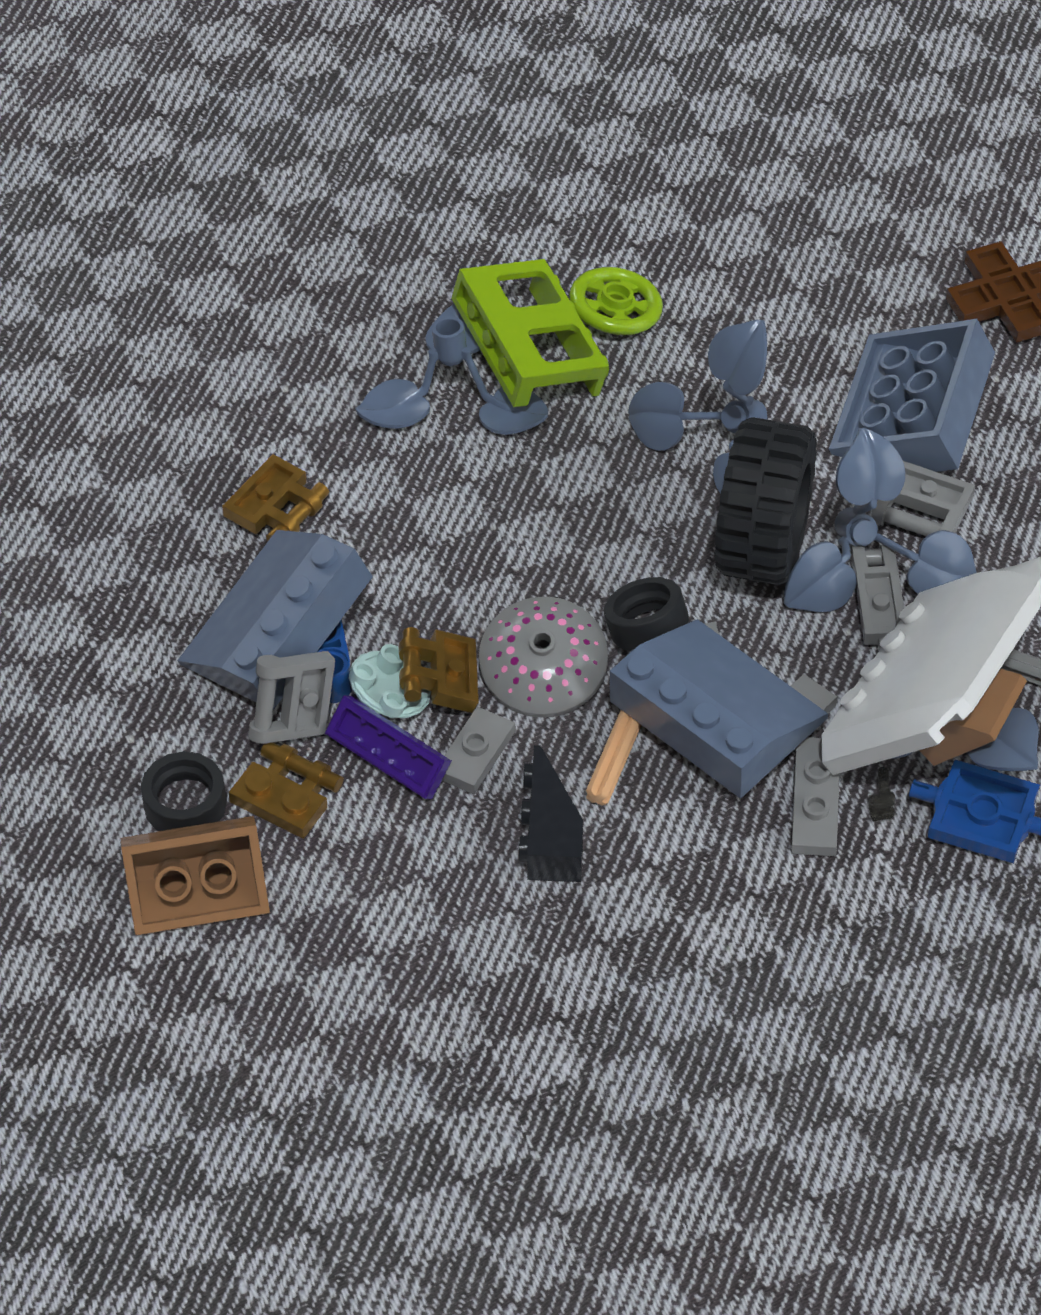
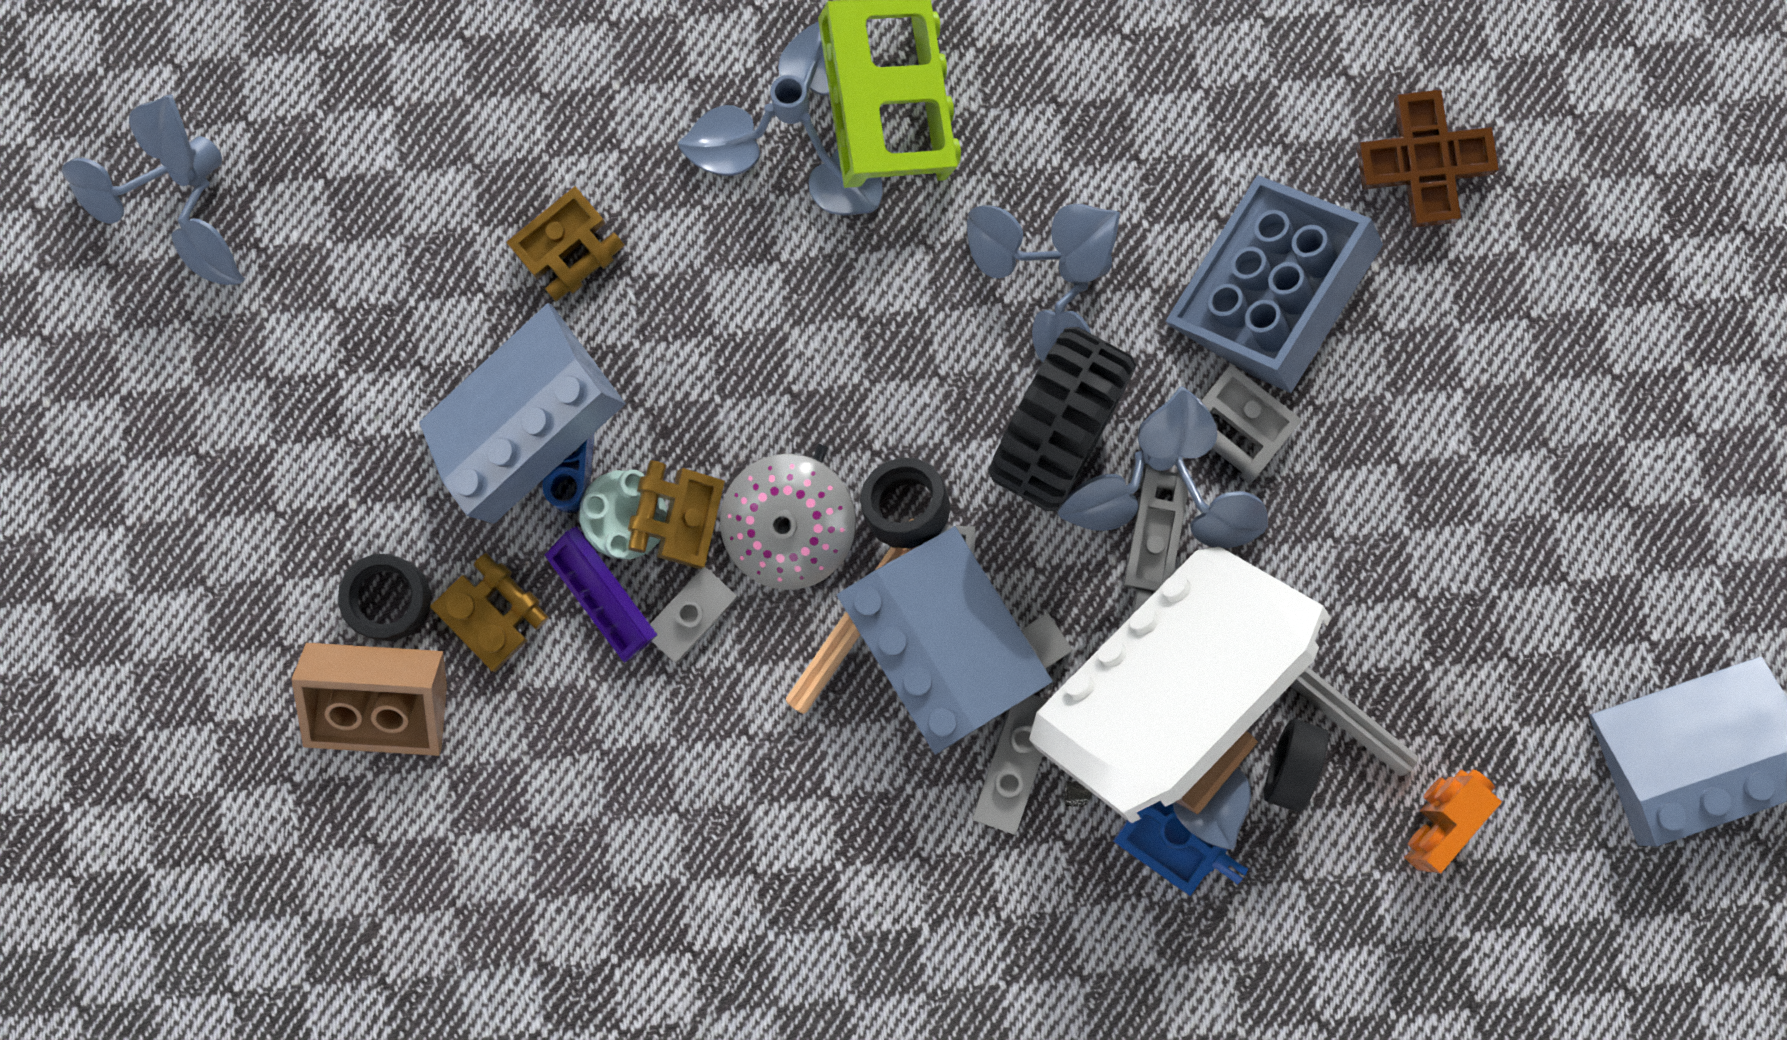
camera: 15 degrees right, 30 degrees up
(304, 698) = (524, 529): light grey plate -> none
(555, 825) = (739, 739): black slope -> none
(616, 300) = (1020, 38): lime plate -> none

